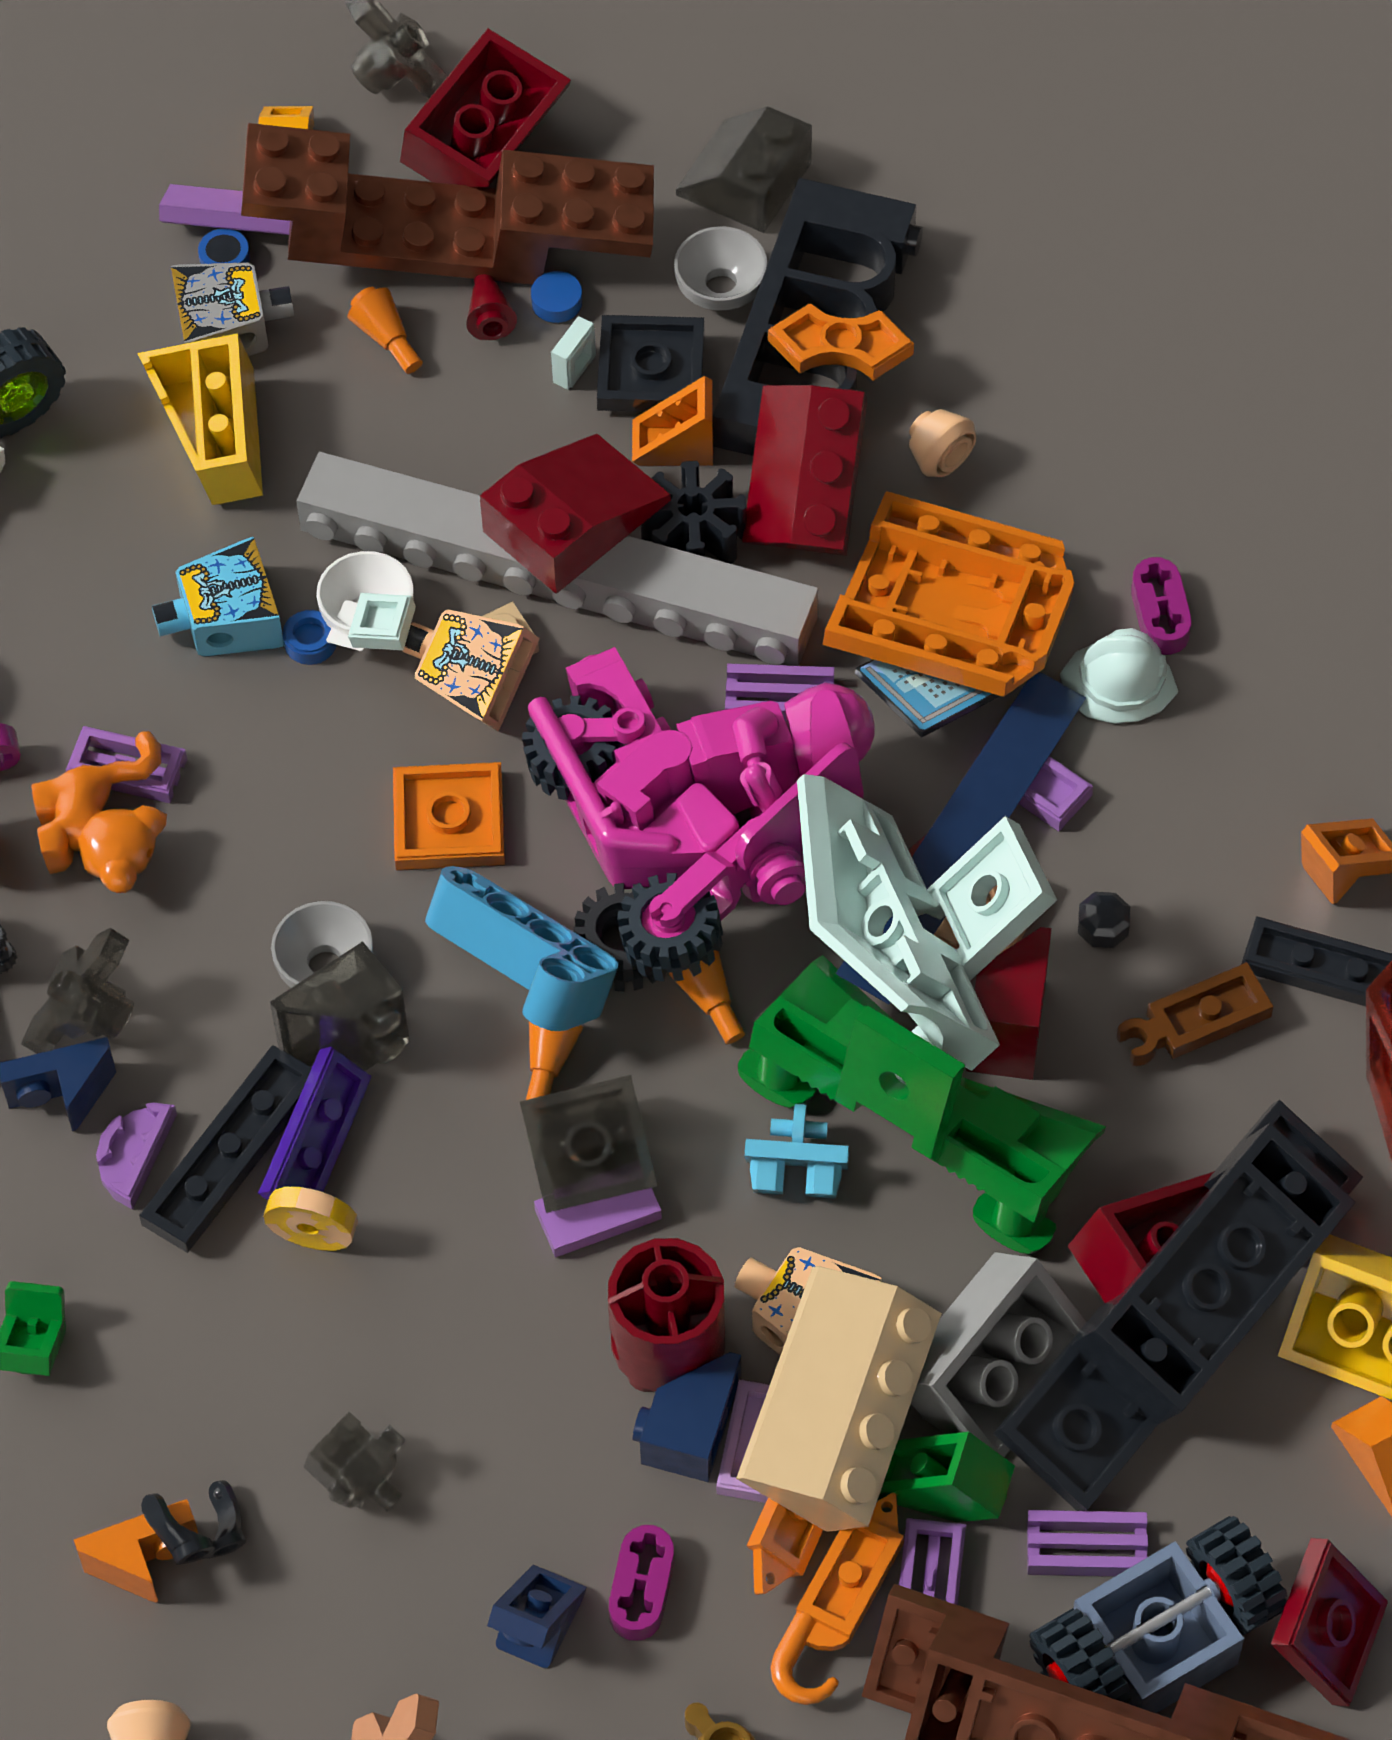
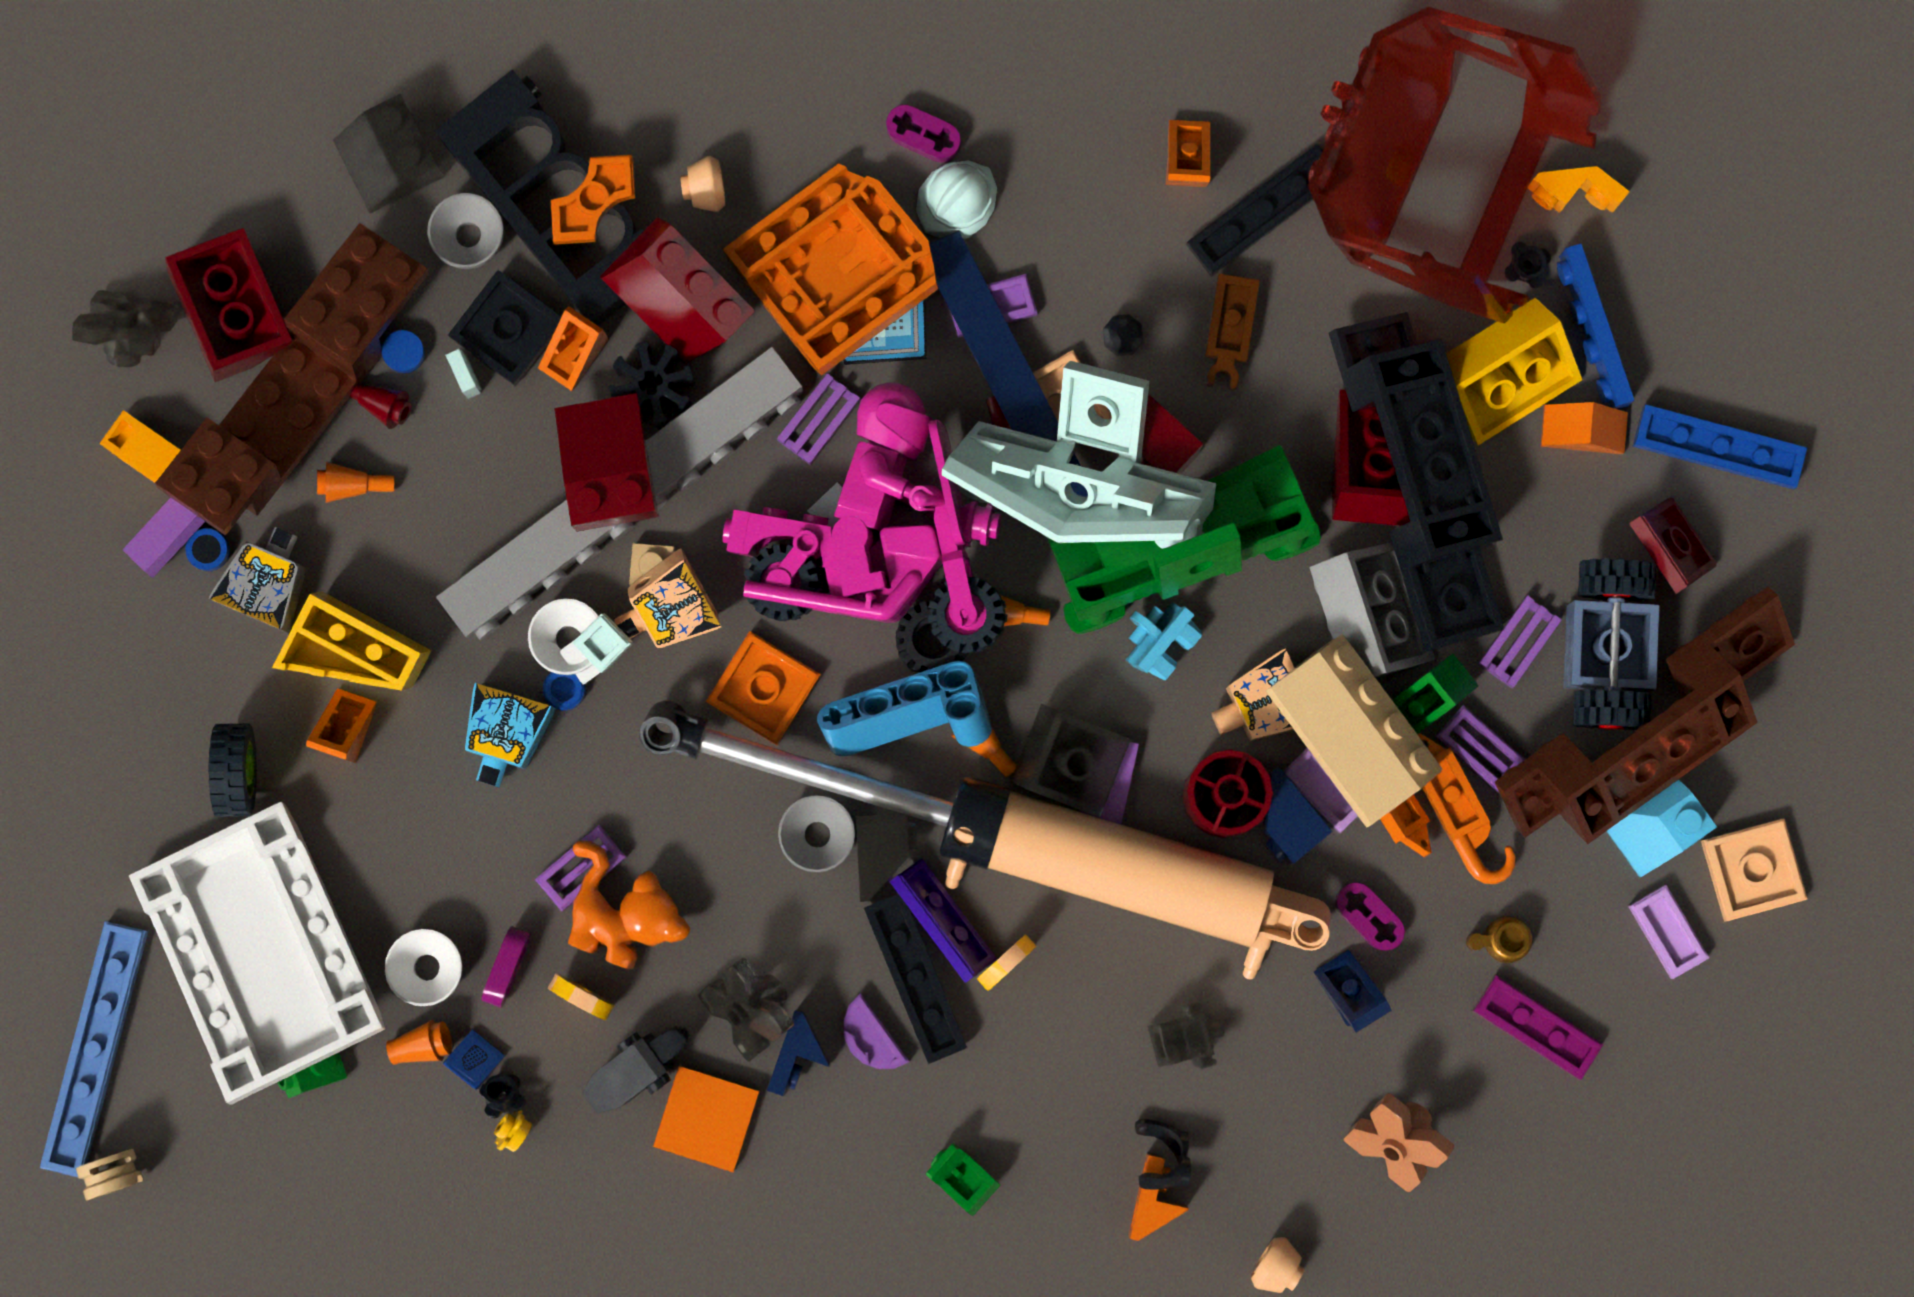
camera: 55 degrees left, 25 degrees up
(121, 462) = (343, 726): none -> orange slope
(478, 1191) = (1047, 845): none -> light nougat piece

